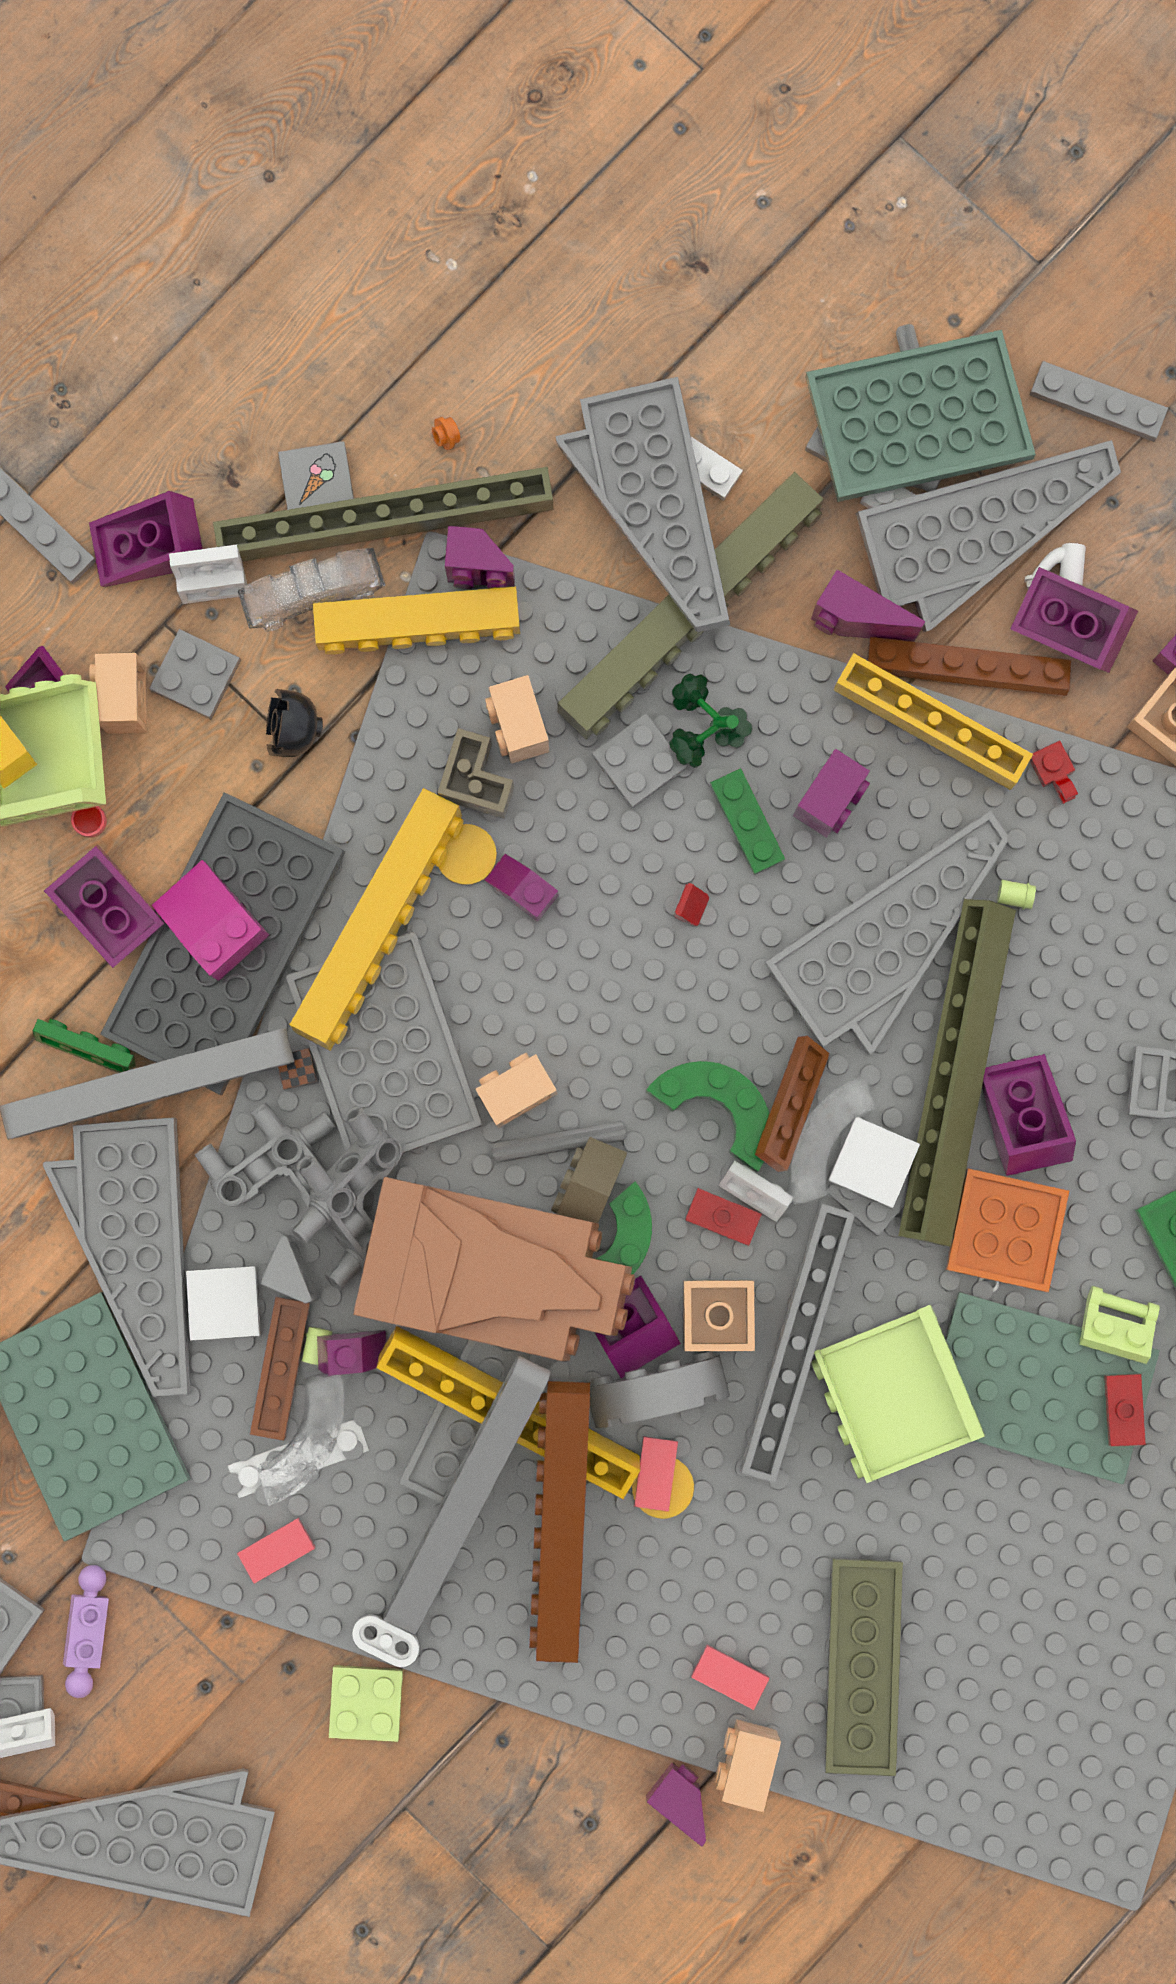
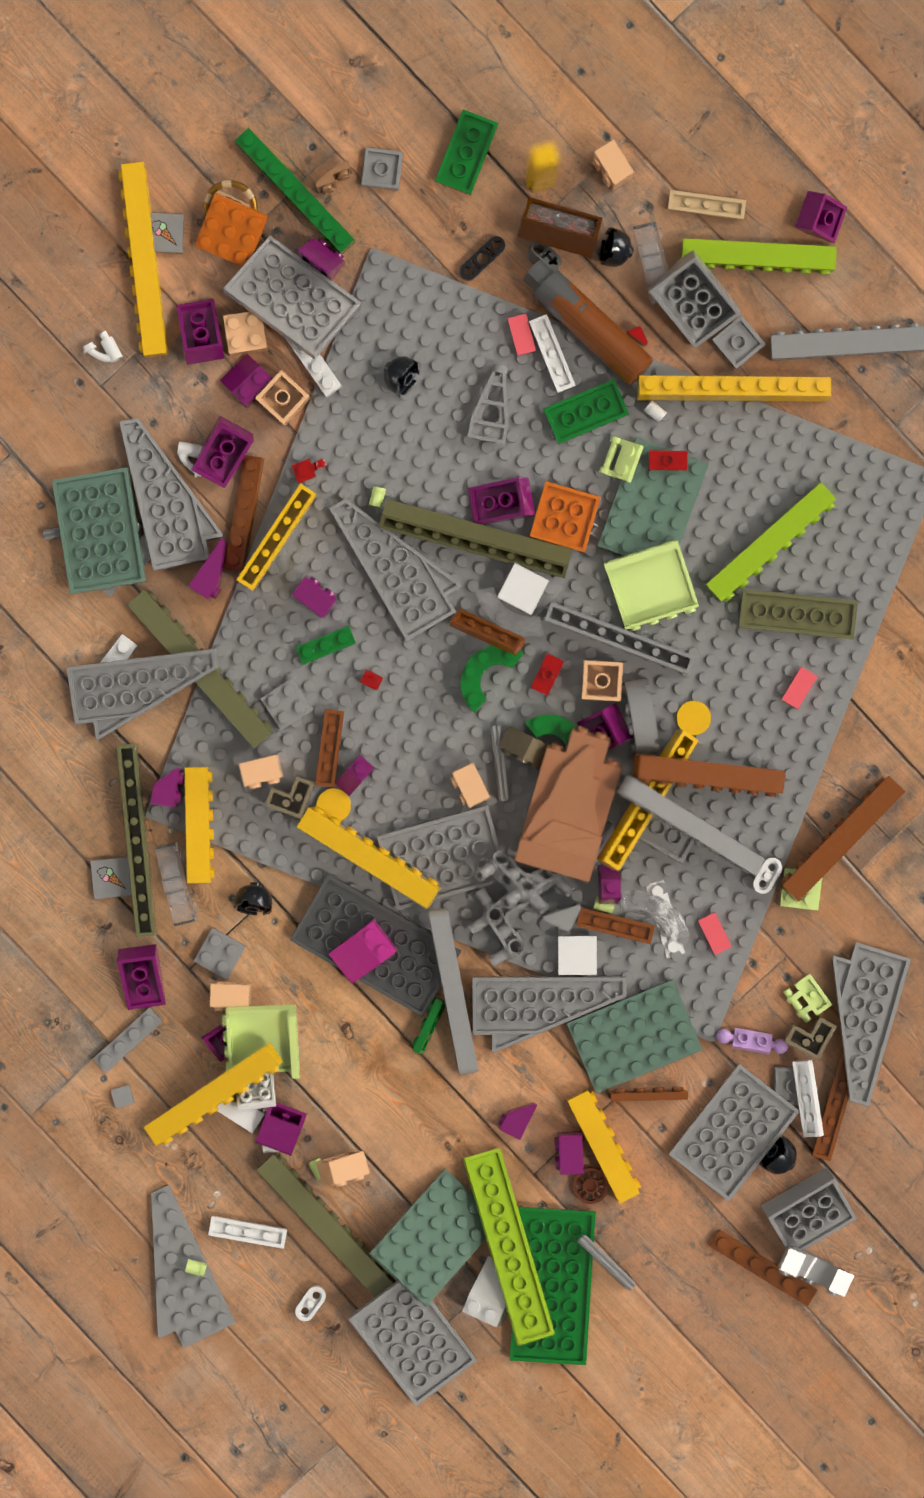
camera: 85 degrees left, 5 degrees up
(89, 821) = (302, 1017): red tile -> none
(89, 1745) = (811, 1042): none -> dark tan brick
(104, 906) = (350, 1010): magenta slope -> none
(176, 1736) = (813, 996): none -> yellowish green plate
(208, 573) = (164, 941): white slope -> none
(299, 1072) = (451, 905): tile -> none
(445, 433) = (89, 802): orange plate -> none
(461, 1776) = (838, 843): none -> dark orange brick
(566, 839) = (329, 748): none -> dark orange plate
(656, 1473) = (686, 721): coral tile -> none
(679, 1800) = (864, 719): magenta slope -> none
(727, 725) = (271, 652): dark green plant -> none
(748, 1765) = (846, 681): light nougat brick -> none
(756, 1191) = (534, 655): white plate -> none
(990, 1607) = (770, 542): none -> lime brick
(1098, 401) = (94, 426): light grey plate -> none

